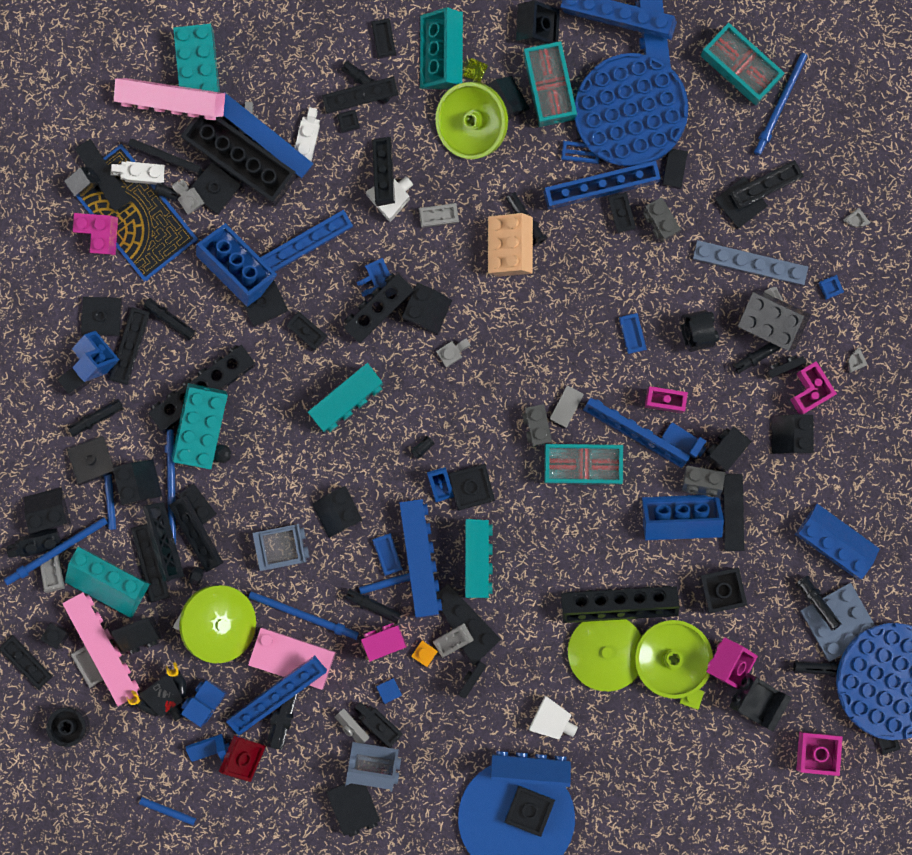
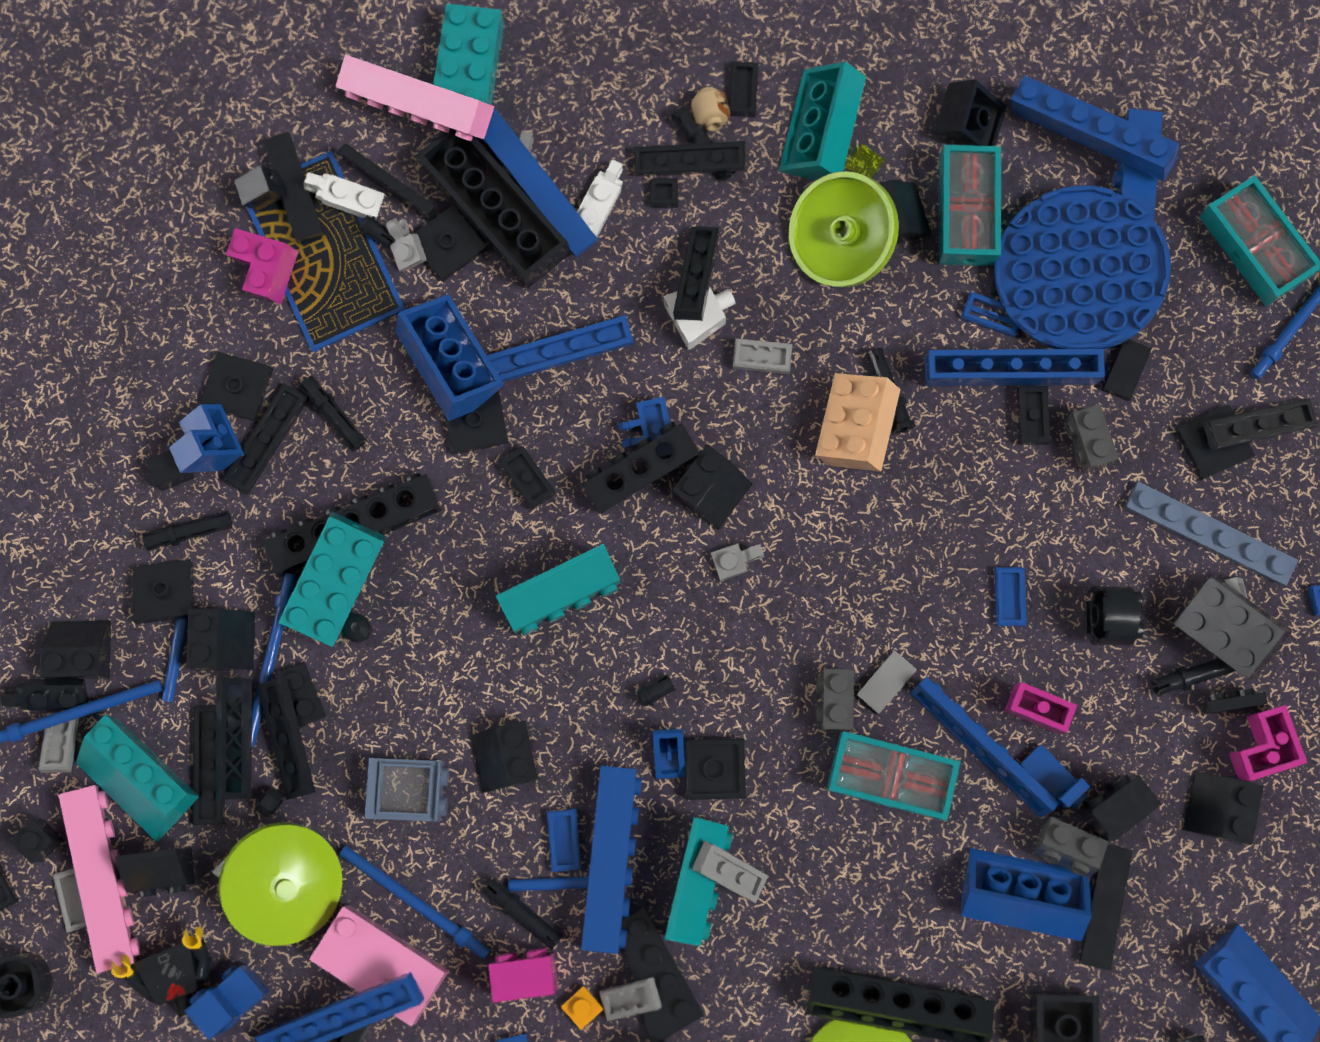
camera: 20 degrees right, 5 degrees down
(365, 57) = (710, 108): none -> tan head
(496, 547) = (729, 872): none -> light grey plate

